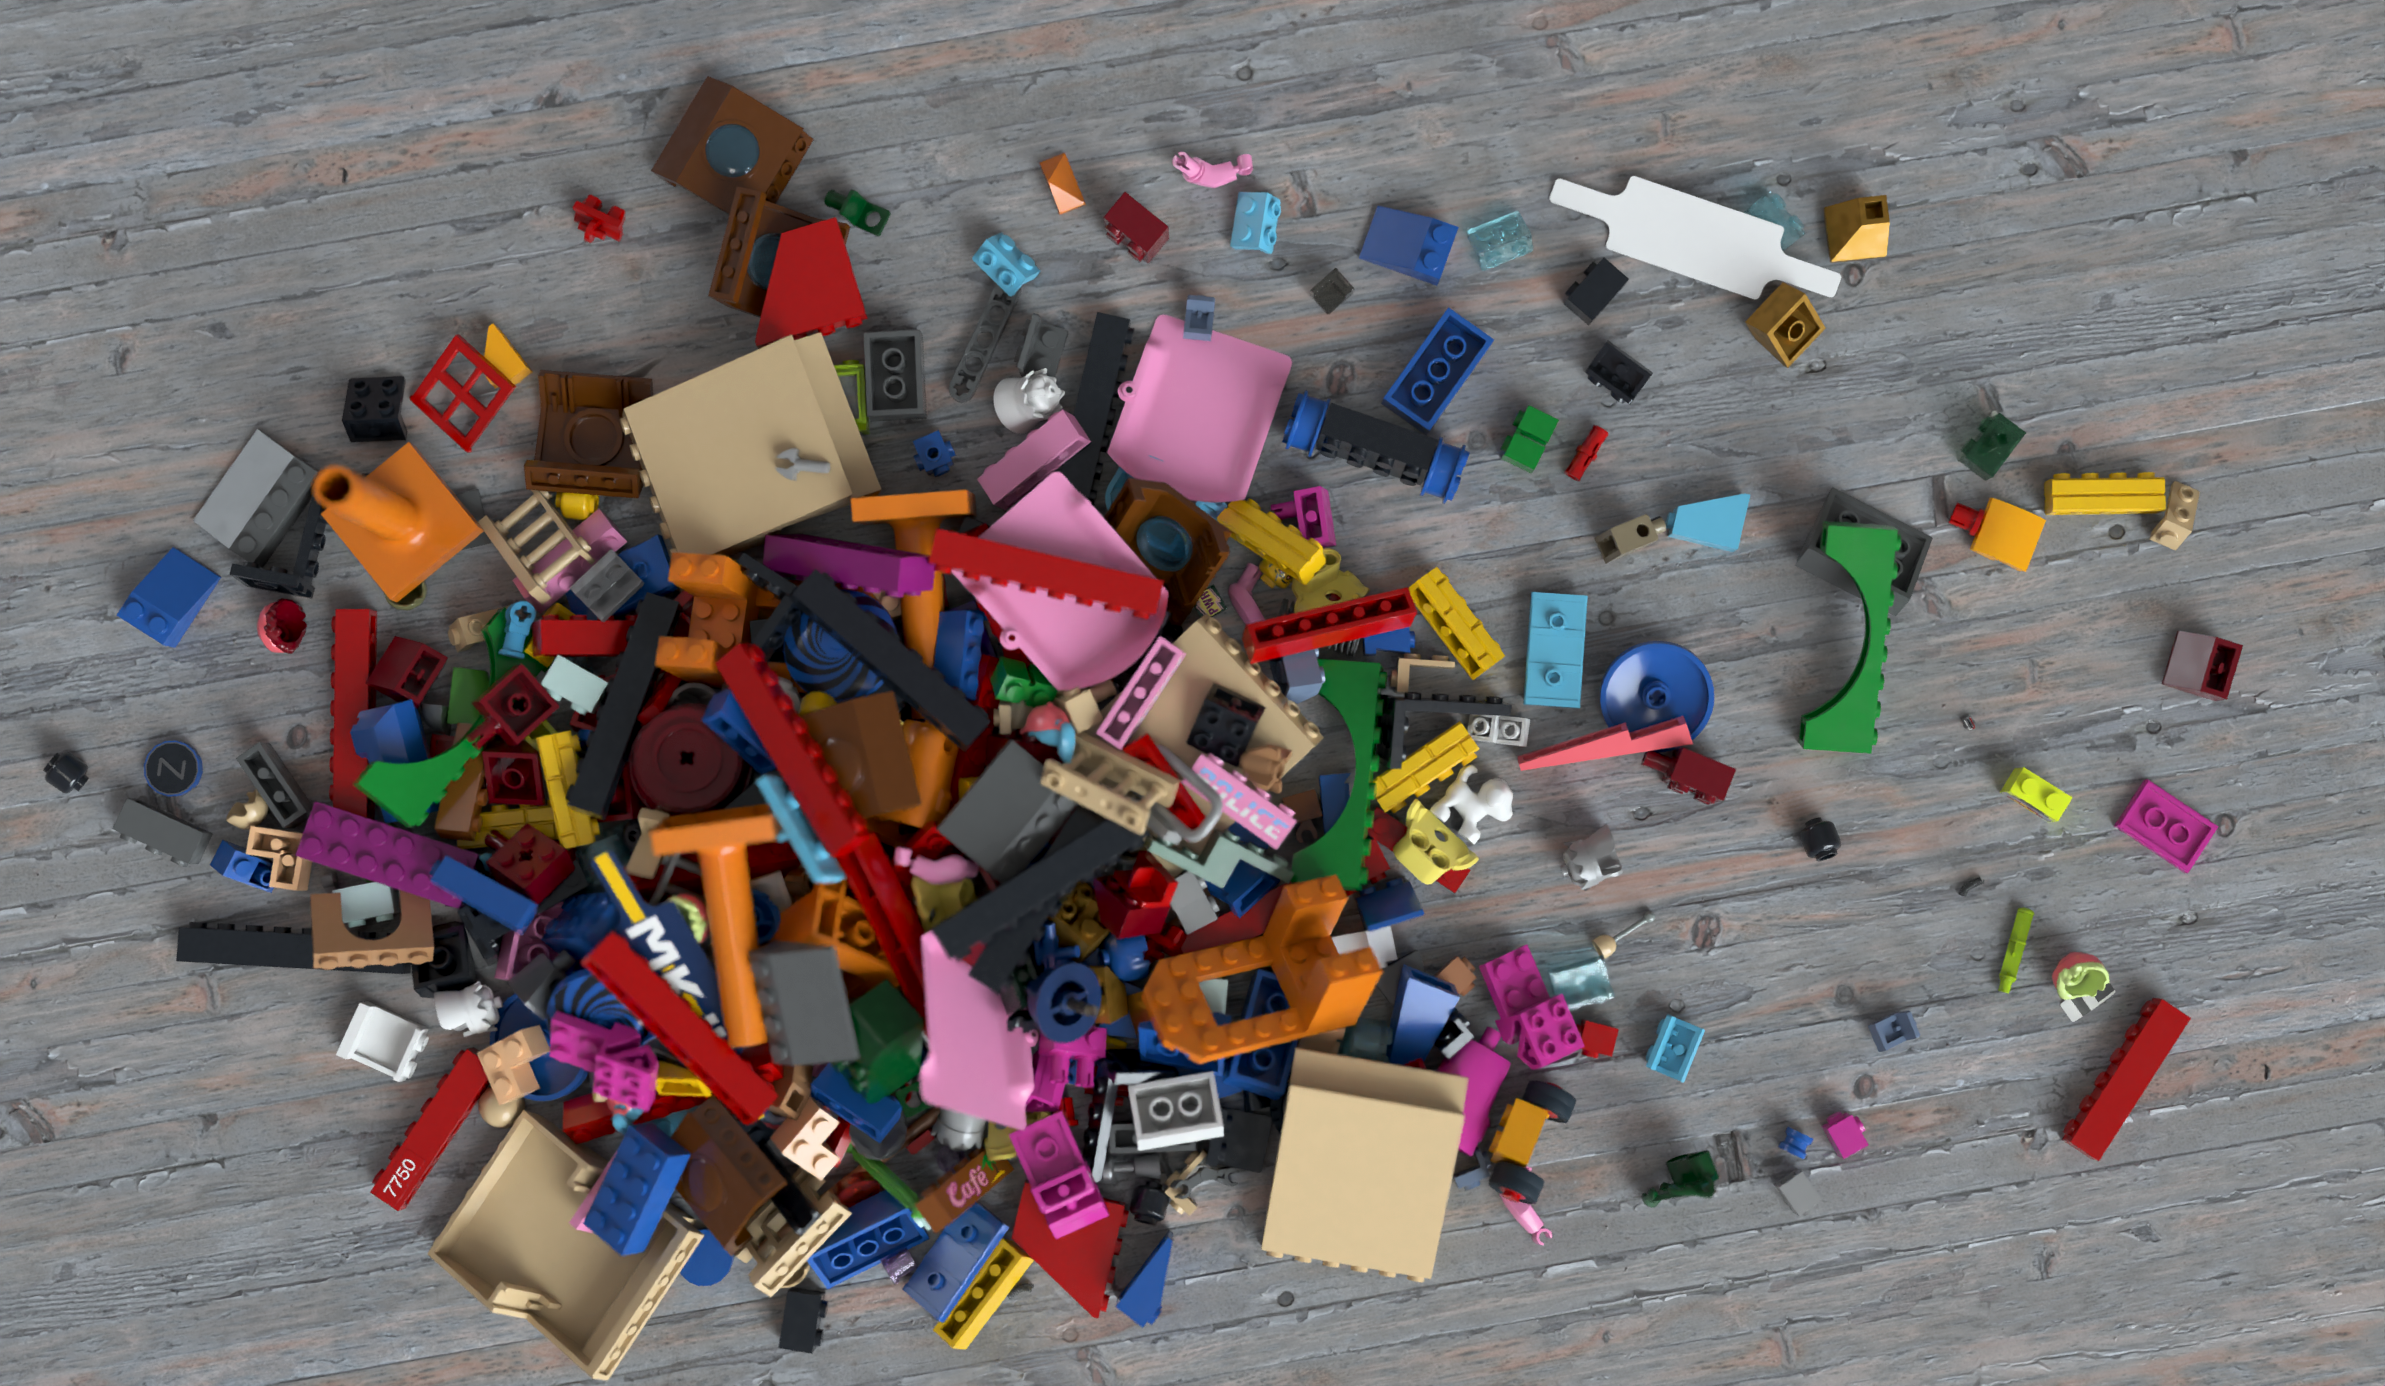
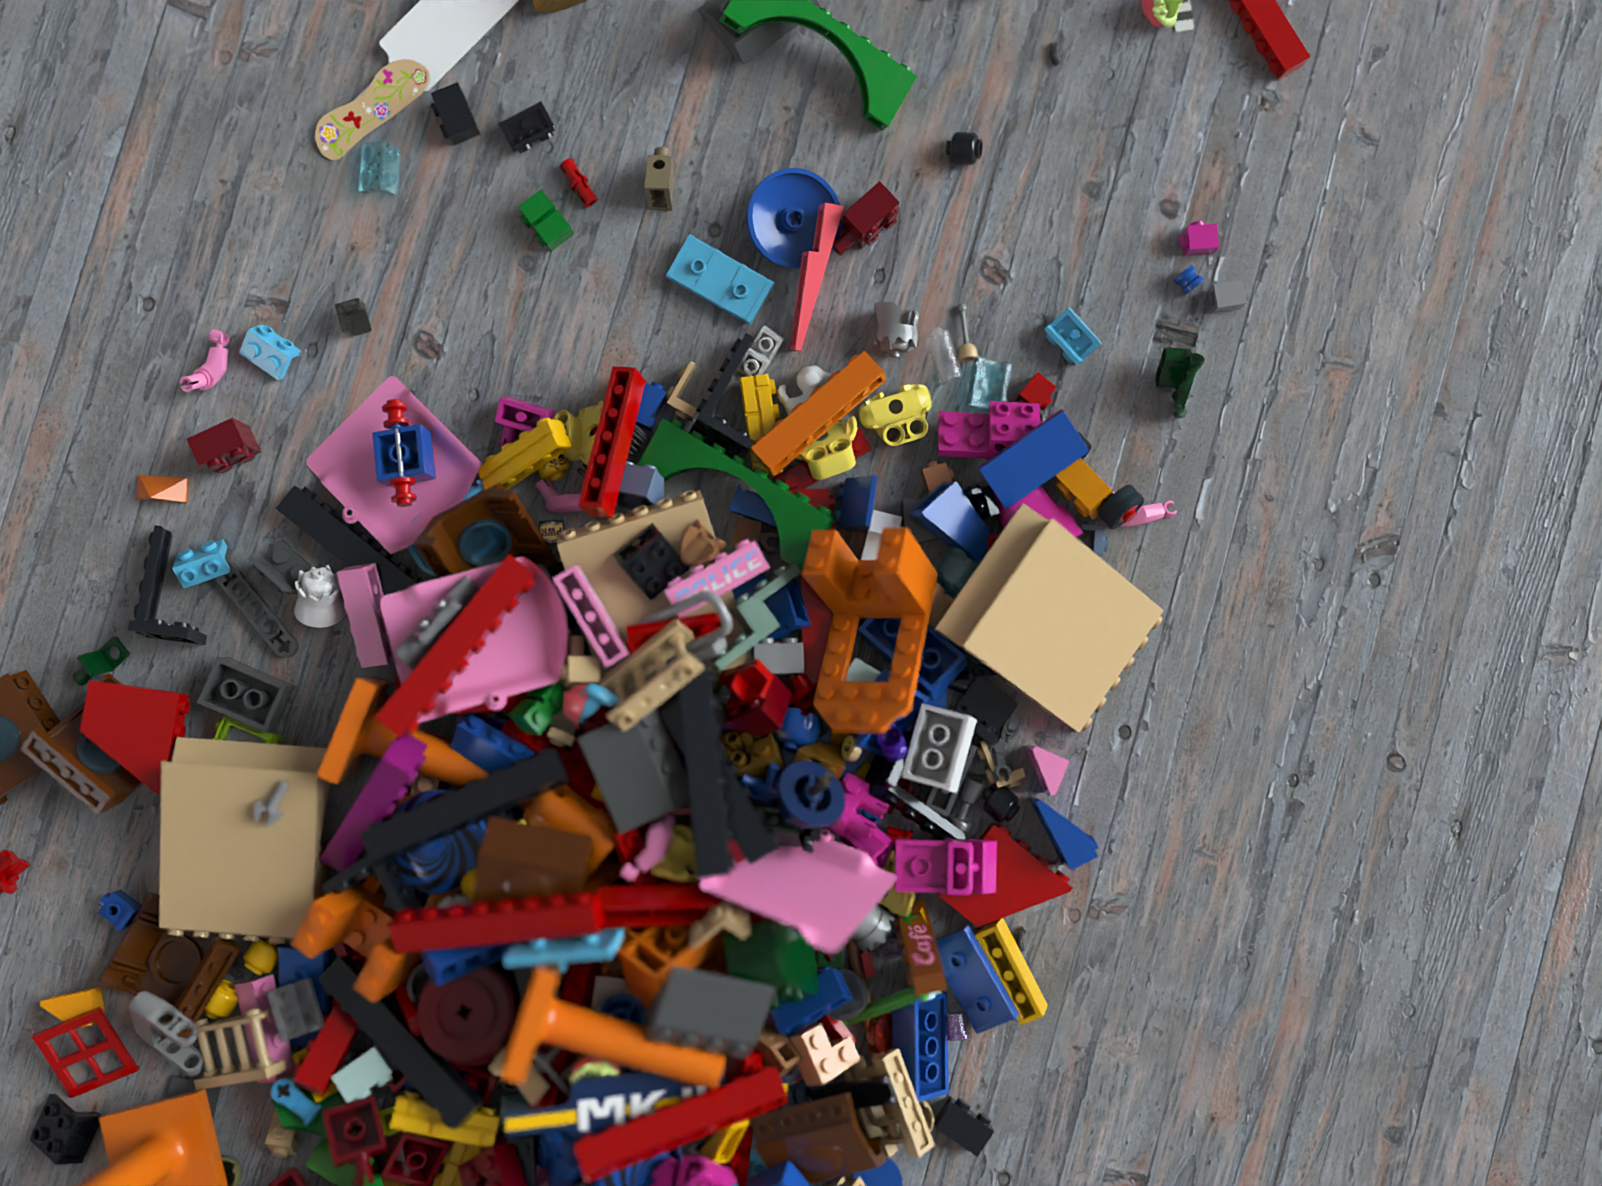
camera: 70 degrees left, 0 degrees up
(516, 455) = (148, 1017): none -> light grey connector
(625, 361) = (126, 907): none -> blue brick
(639, 521) = (261, 956): none -> yellow head
(907, 973) = (724, 915): none -> tan bracket
(931, 444) = (325, 693): blue brick -> none
(955, 224) = (150, 593): none -> black bracket
(1060, 541) = (435, 624): none -> flat silver bracket
(1130, 1020) = (850, 750): none -> tile
(1156, 1061) = (892, 744): none -> dark purple wheel
(1199, 317) = (321, 431): sand blue bracket -> none
(1209, 1234) = (1048, 768): none -> bright pink slope
(1214, 415) = (402, 453): none -> blue brick
(1376, 445) = (490, 340): black brick -> none
(1409, 244) = (346, 239): blue slope -> none
(1437, 371) = (456, 265): blue brick -> none
(1455, 623) = (662, 346): yellow brick -> none
(1462, 821) = (818, 413): none -> orange brick
(1492, 881) = (915, 403): none -> light yellow piece
(1520, 1068) = (1033, 459): none -> blue tile
(1581, 210) = (386, 96): none -> tan sticker
(1589, 922) = (944, 356): none -> clear brick
(1710, 522) = (679, 113): medium azure slope -> none
(1893, 1030) = (1137, 163): sand blue bracket -> none
(2015, 948) = (1118, 43): lime piece -> none

